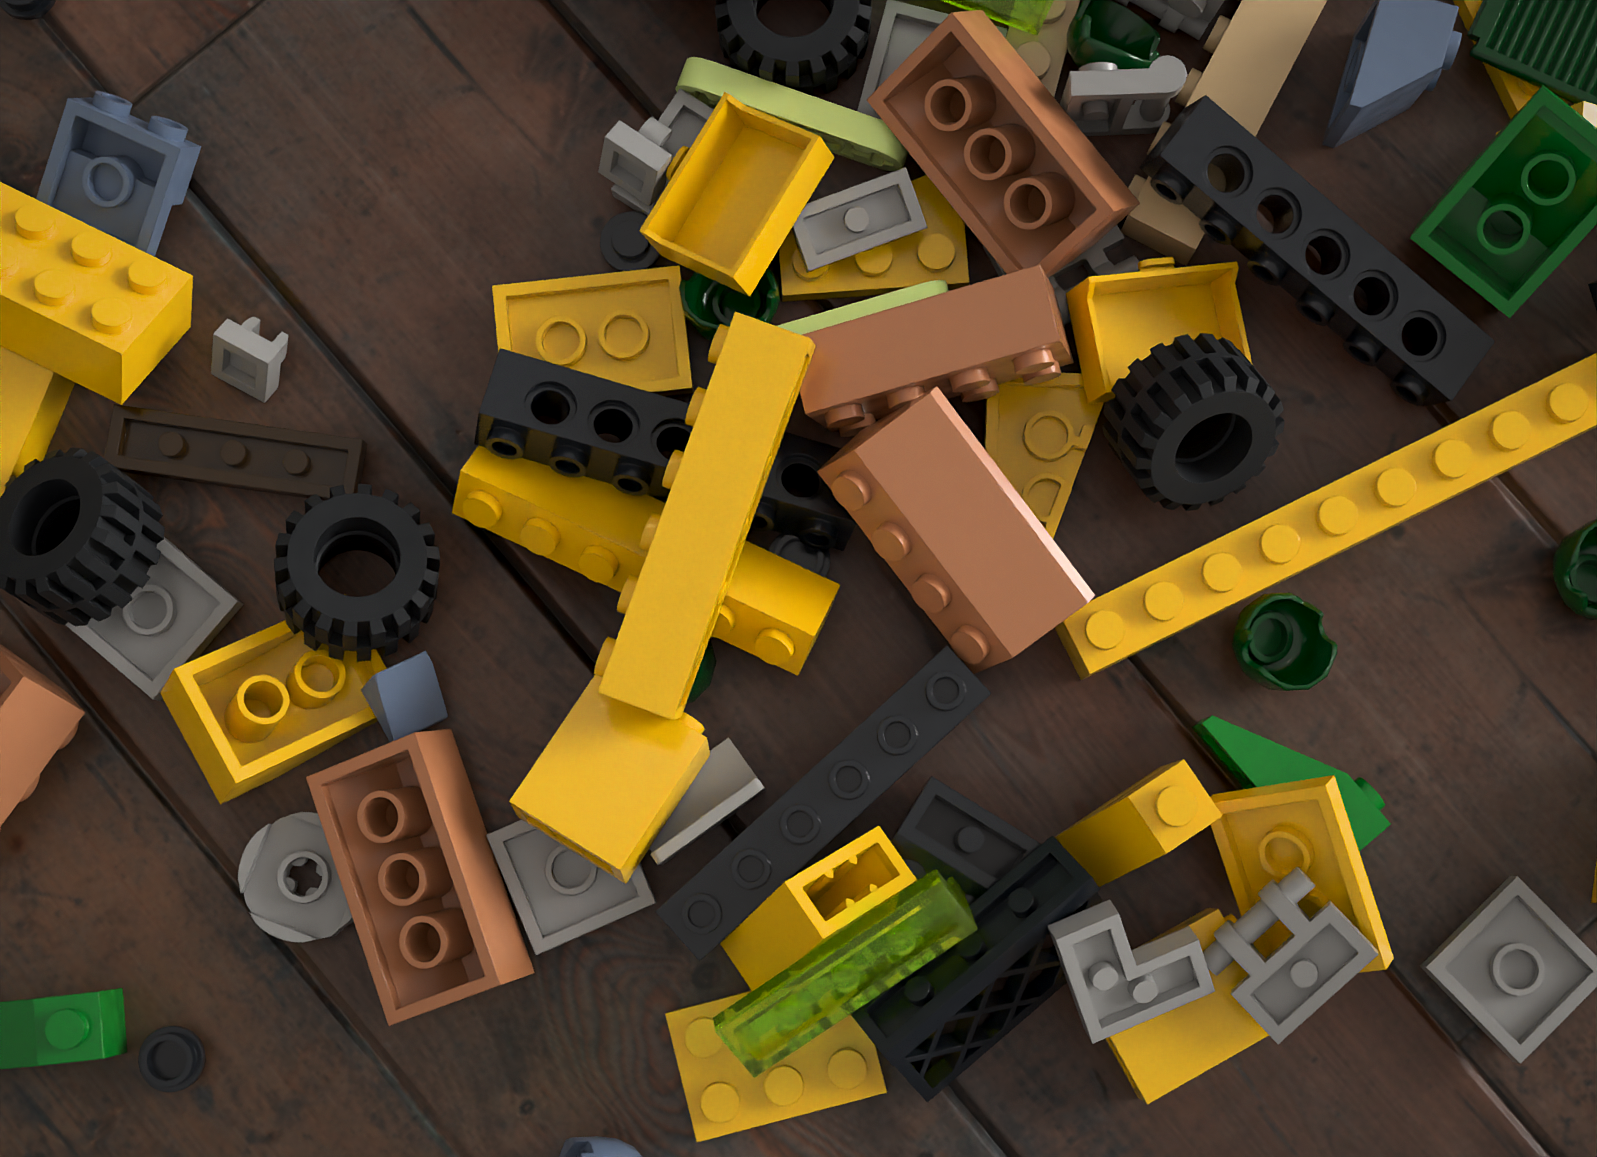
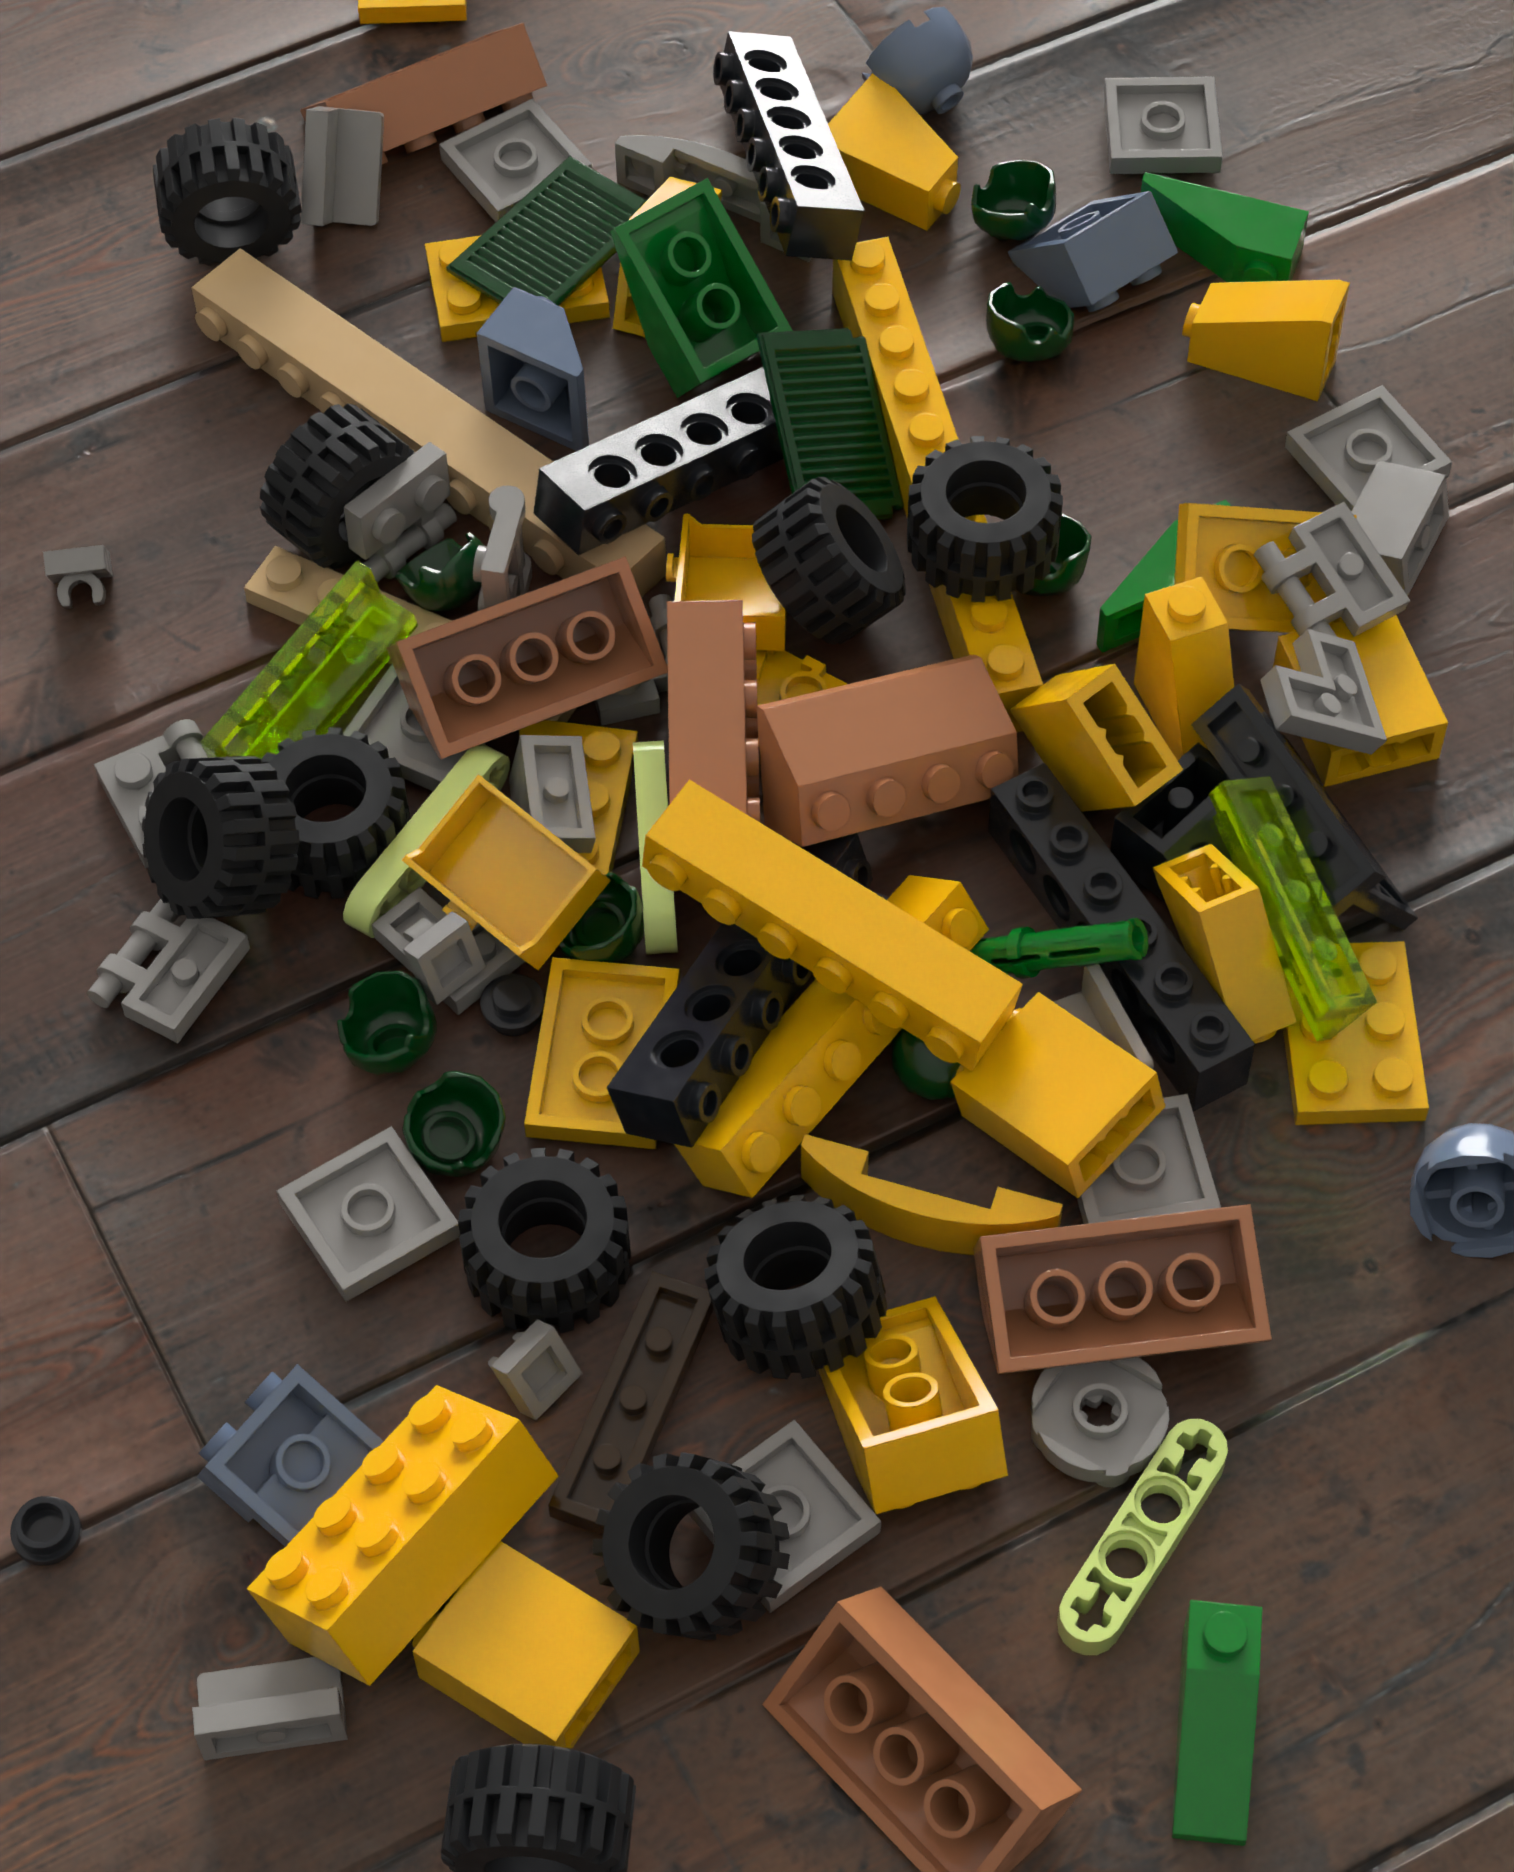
camera: 80 degrees left, 25 degrees down
(171, 1058) = (1269, 1581): black plate -> none
(196, 942) = (1137, 1532): none -> yellowish green beam
(338, 296) = (536, 1194): none -> black tyre
(379, 171) = (368, 1213): none -> light grey plate
(406, 697) = (931, 1284): sand blue slope -> none
(476, 222) = (454, 1124): none -> dark green hair
(496, 594) = (914, 1214): none -> yellow slope
(568, 132) = (387, 1023): none -> dark green hair
(772, 773) = (1029, 951): none -> green pin
(1014, 740) = (1096, 738): none -> yellow brick
(1300, 536) = (984, 481): none -> black tyre
(1389, 383) = (830, 414): none -> dark green window
(1420, 1013) = (1403, 516): none -> light grey panel

